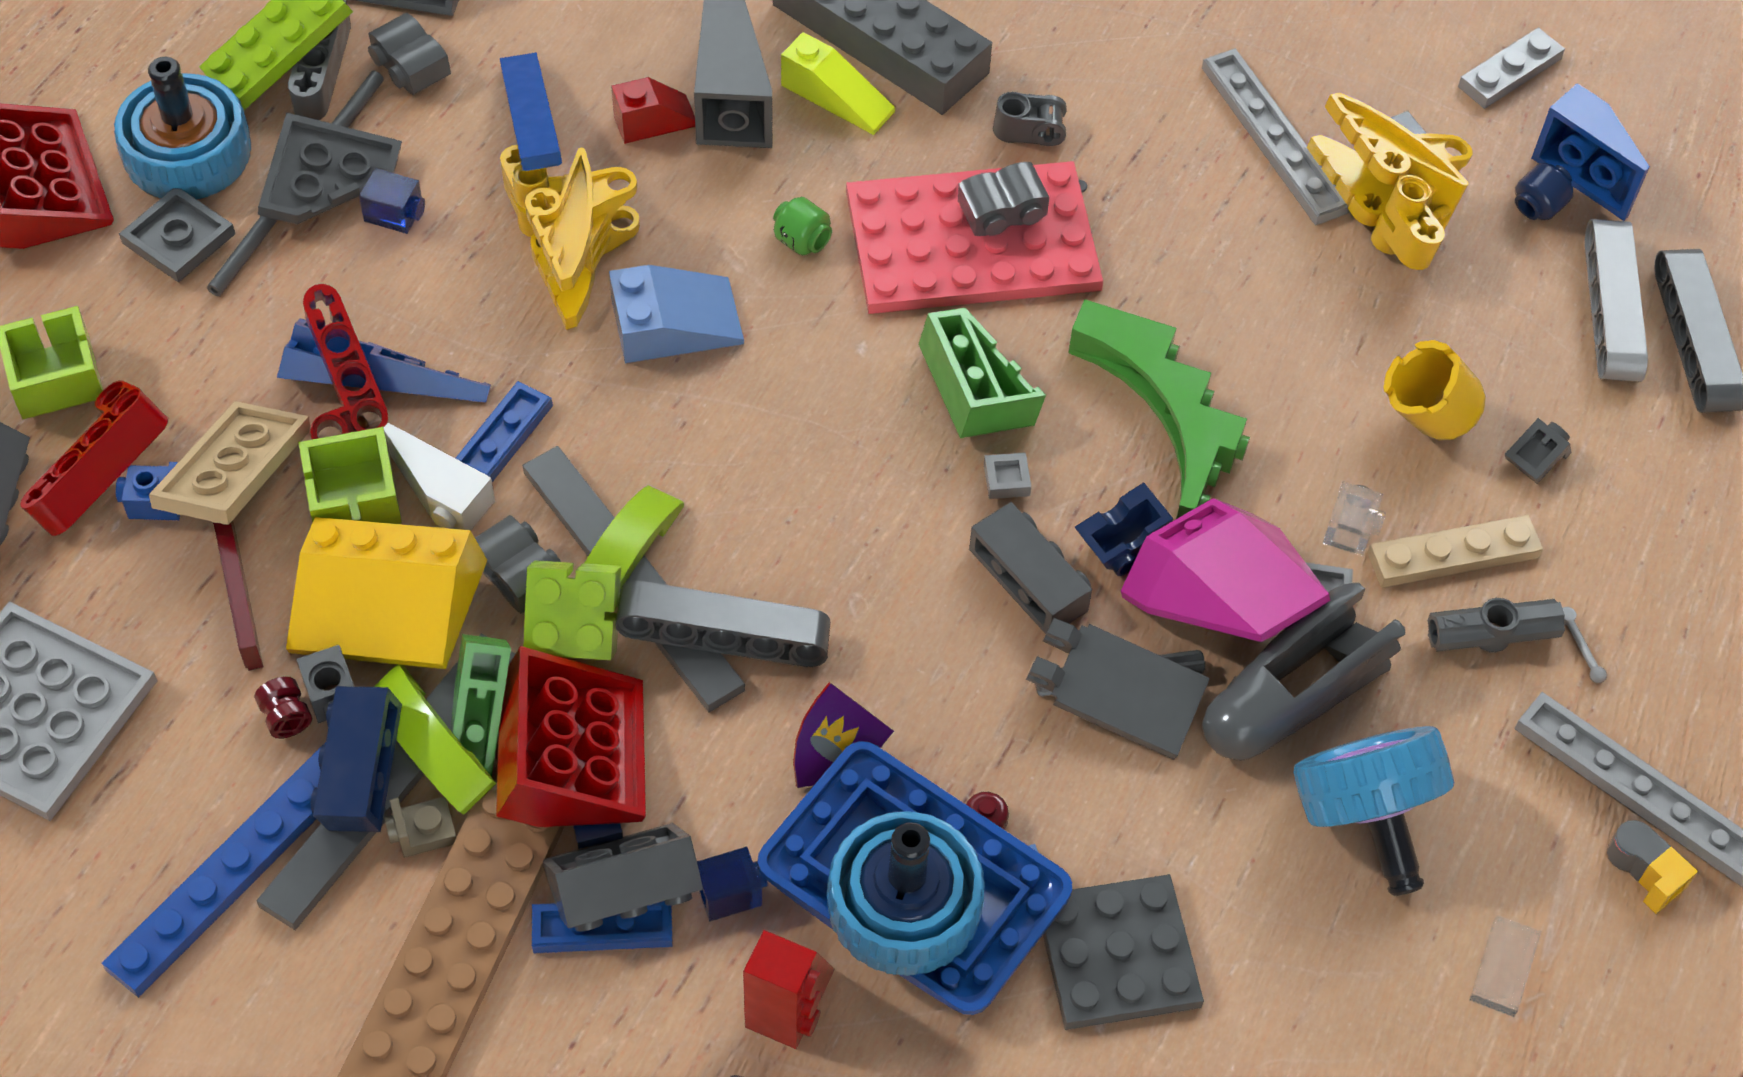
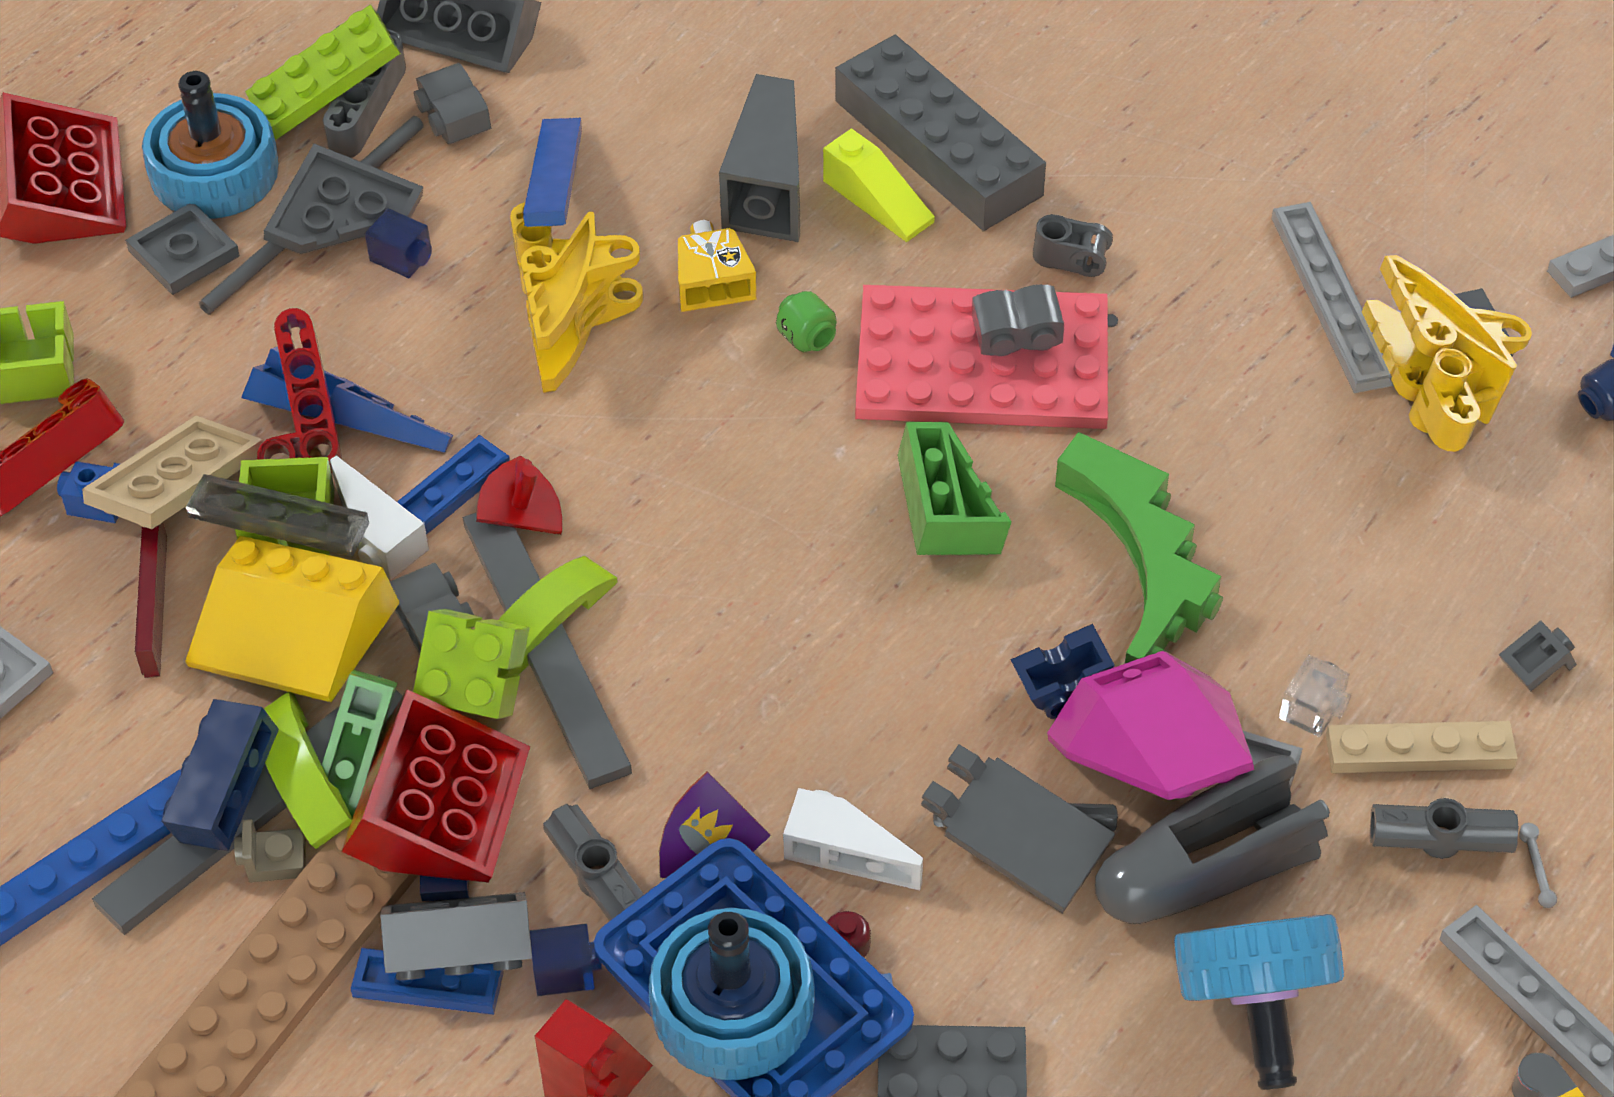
camera: 15 degrees right, 5 degrees down
(284, 710) = (166, 717): dark red wheel -> none
(321, 670) = (211, 683): dark grey brick -> none
(351, 492) = (278, 515): none -> clear smoke plate
(572, 438) = (519, 498): none -> red shield
(649, 109) = (679, 186): red slope -> none
(672, 312) = (652, 388): medium blue slope -> none
(701, 185) = (713, 268): none -> yellow torso
(721, 771) = (585, 848): none -> dark grey piece
(723, 624) = (622, 701): beam -> none
(961, 723) = (841, 838): none -> white slope
(1007, 475) = (956, 599): light grey plate -> none
(1030, 567) = (956, 693): dark grey brick -> none
(1435, 391) = (1432, 576): yellow cylinder -> none

